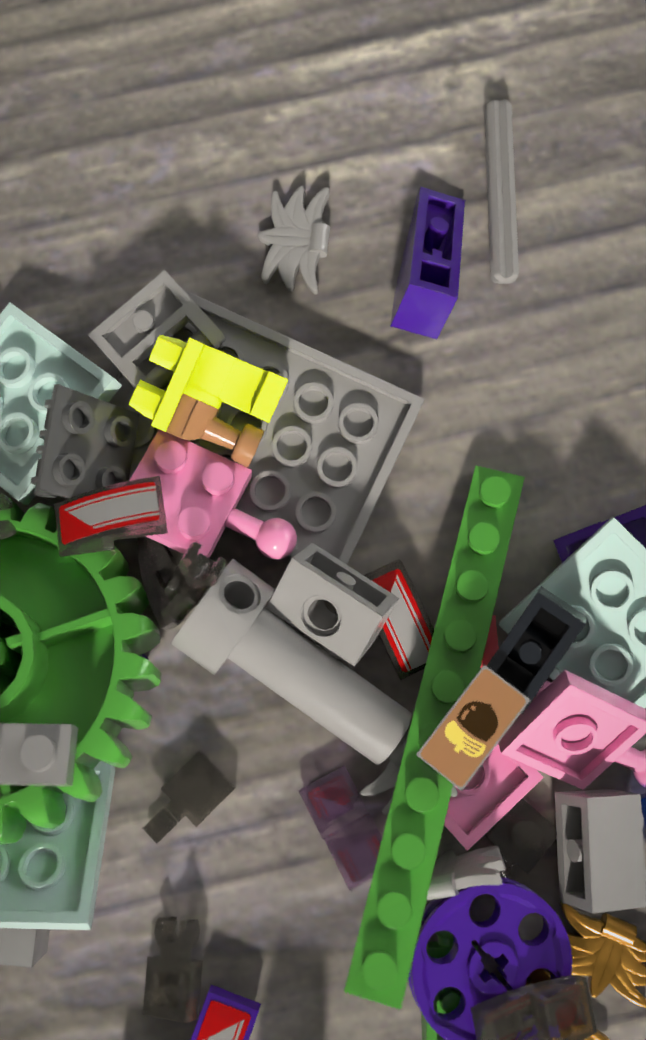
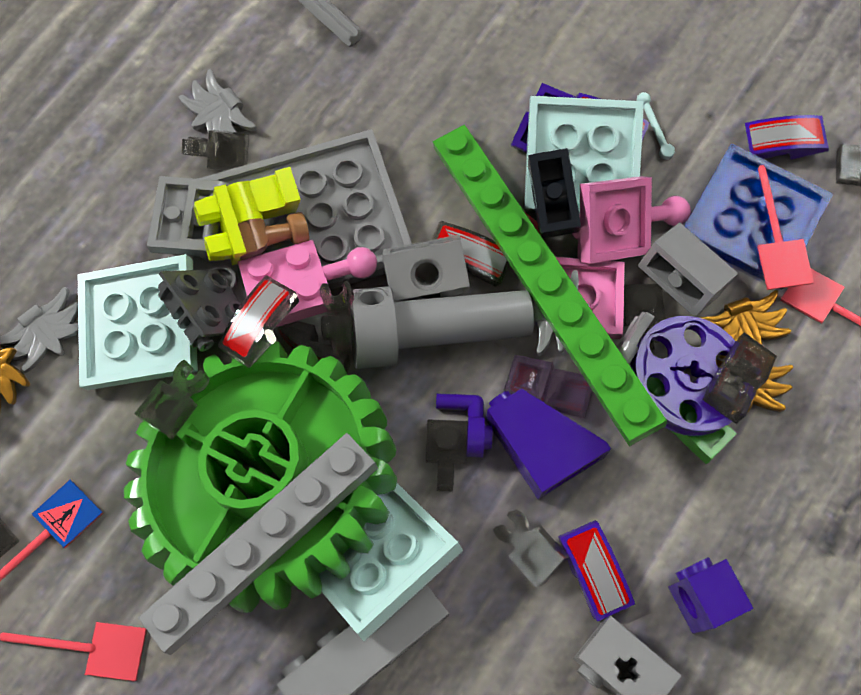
camera: 45 degrees left, 10 degrees down
(230, 814) = (478, 434): none -> dark purple plate
(260, 287) = (223, 149): none -> clear smoke plate
(282, 884) = (542, 441): none -> dark purple slope
(430, 265) = (308, 61): dark purple slope -> none
(473, 727) = (562, 252): medium nougat tile -> none

